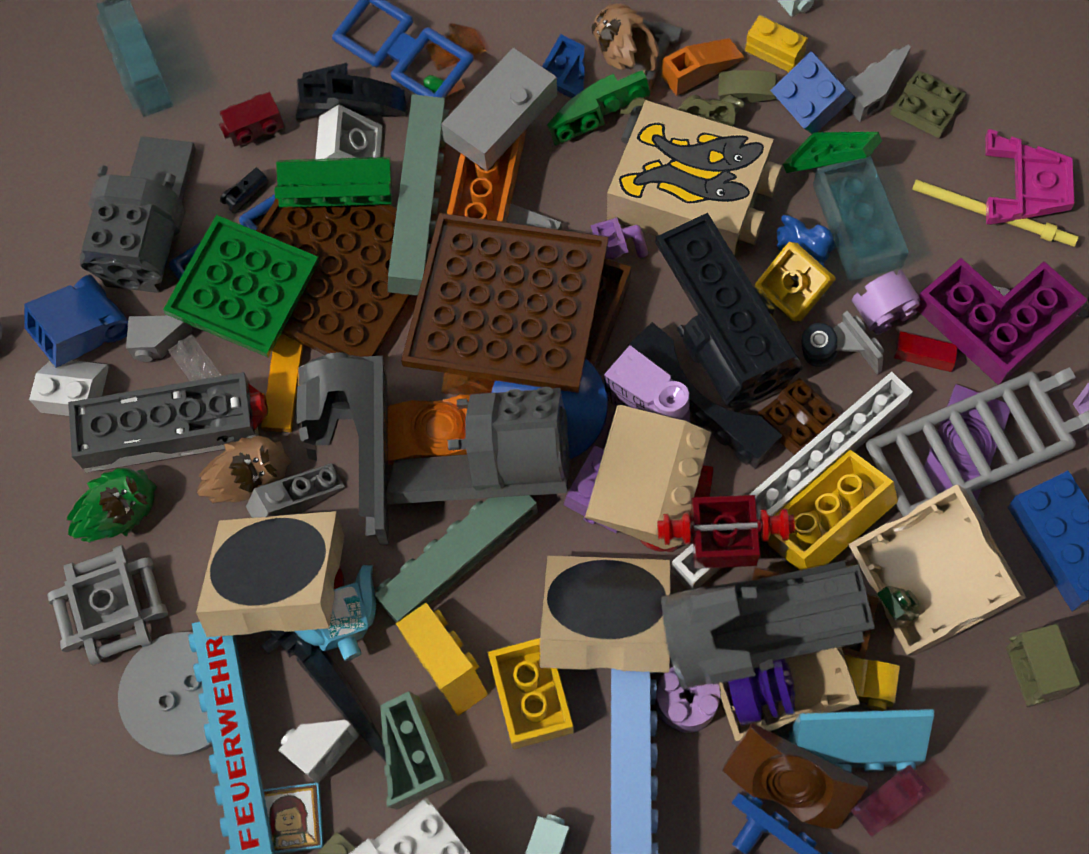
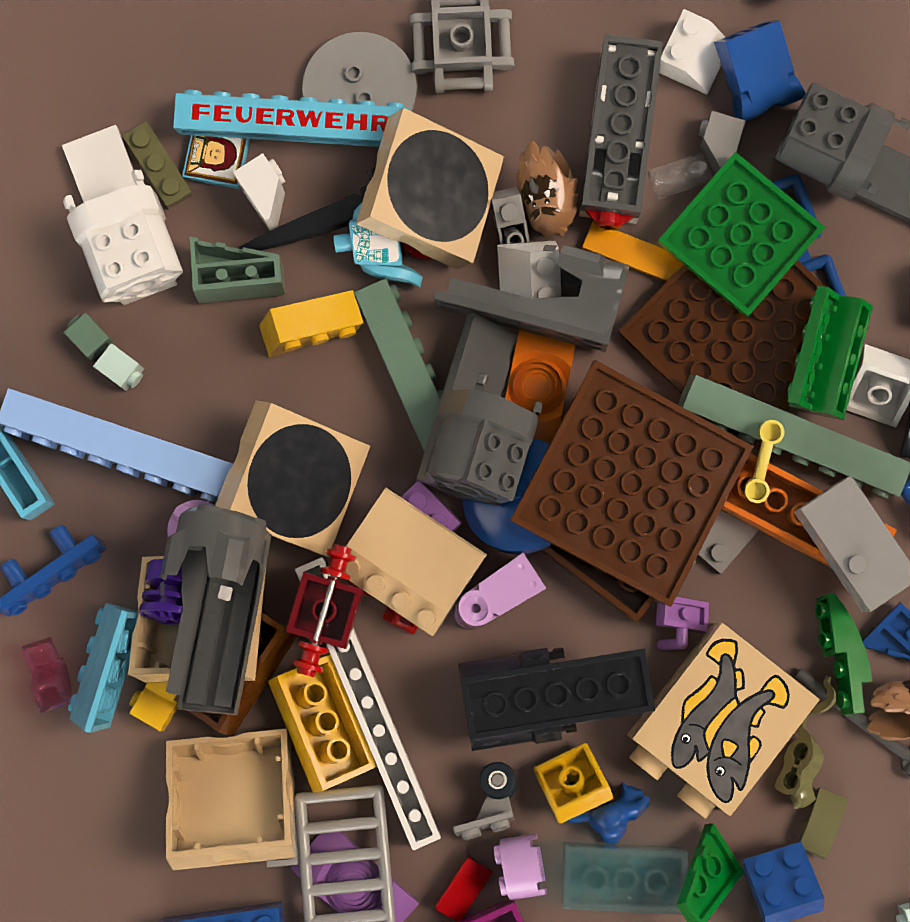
camera: 105 degrees right, 15 degrees up
(112, 505) = (552, 63): green head -> none
(246, 187) = (863, 272): black bar -> none
(329, 460) = (529, 270): none -> white slope
(475, 204) = (756, 488): none -> light yellow bar
(529, 695) = (236, 384): yellow brick -> none
(698, 63) = (863, 783): orange slope -> none
(747, 435) = (429, 679): black arch -> none
(775, 44) = (861, 871): yellow brick -> none
(794, 778) = (92, 594): reddish brown slope -> none
(798, 415) = (435, 734): reddish brown slope -> none
(900, 603) = (212, 752): dark green plate -> none
(1043, 665) = (113, 863): olive brick -> none

